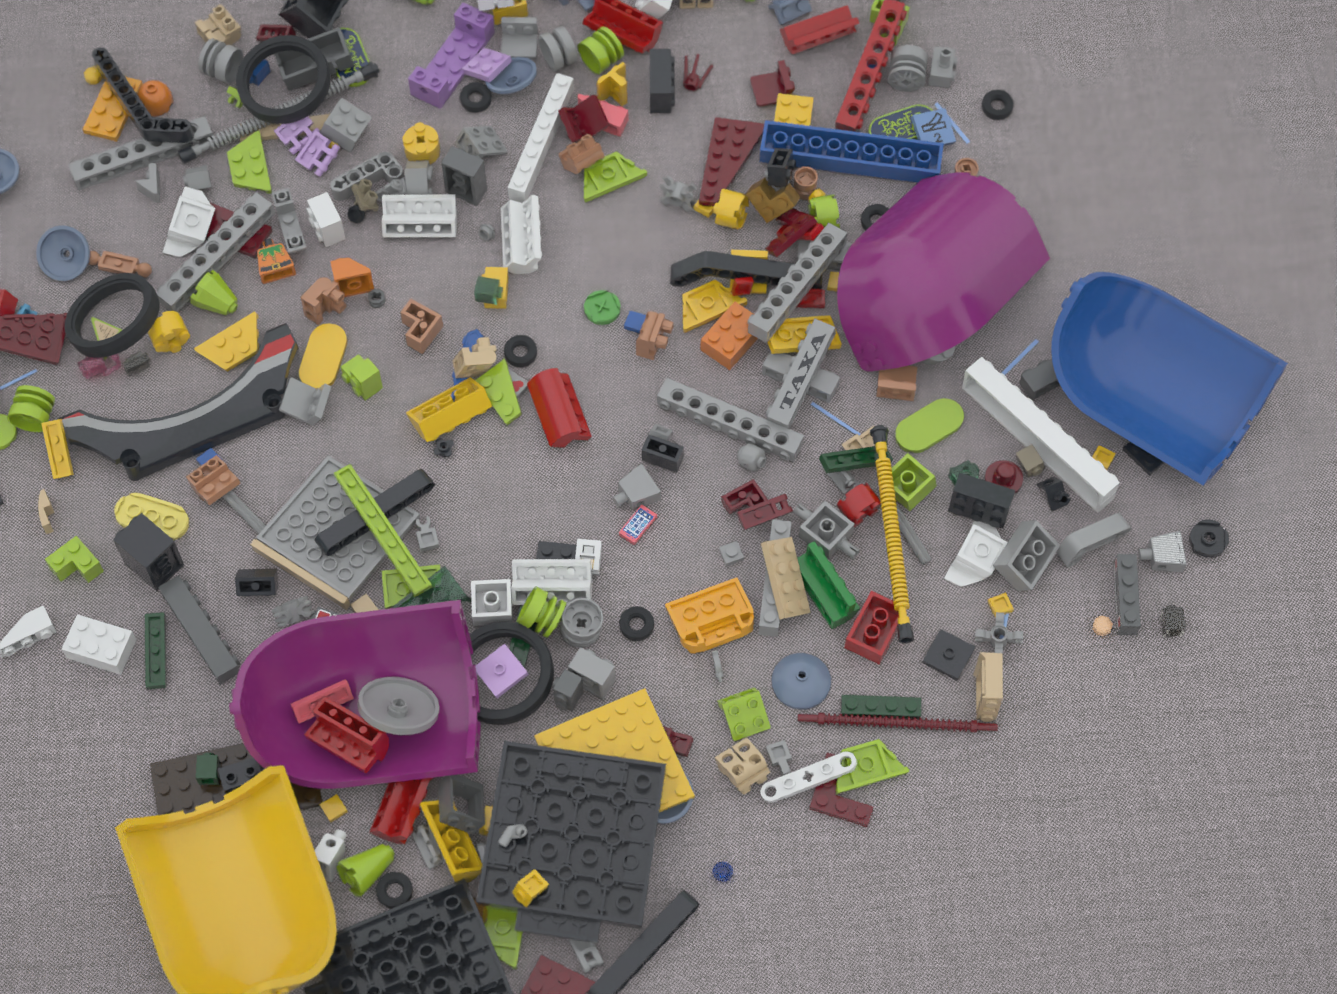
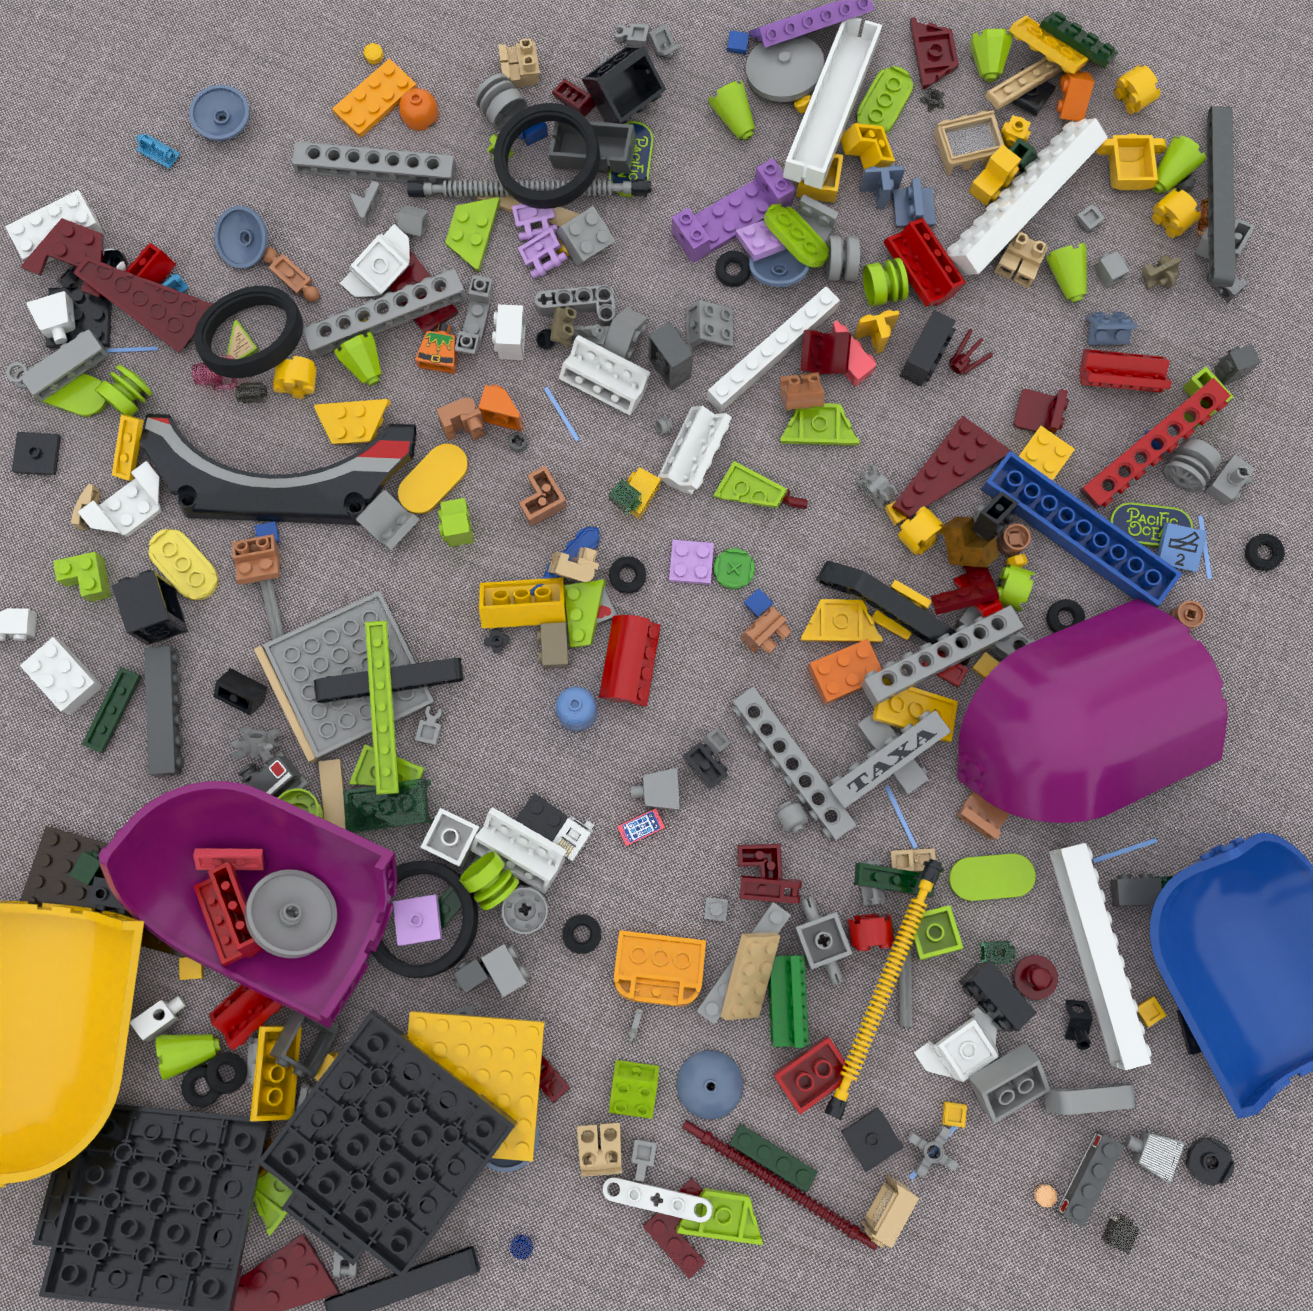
camera: 25 degrees right, 15 degrees up
(84, 491) = (128, 507): none -> white piece
(150, 128) = (390, 142): black beam -> none
(399, 263) = (559, 410): none -> light blue piece
(405, 876) = (226, 1059): none -> black tyre
(421, 143) = (649, 285): yellow brick -> none
(492, 427) = (554, 645): none -> dark tan brick
(512, 49) = (796, 235): none -> lime tile
(512, 832) = (325, 1113): light grey arm -> none
(529, 887) = (312, 1183): yellow bracket -> none
(536, 462) = (576, 709): none -> medium blue cylinder
(565, 318) = (691, 562): none -> lavender plate
(580, 242) = (749, 487): none -> lime wing
(619, 237) = (794, 501): none -> dark red arm
(742, 286) = (884, 625): red tile -> none
(1030, 461) = (1073, 976): dark tan brick -> none

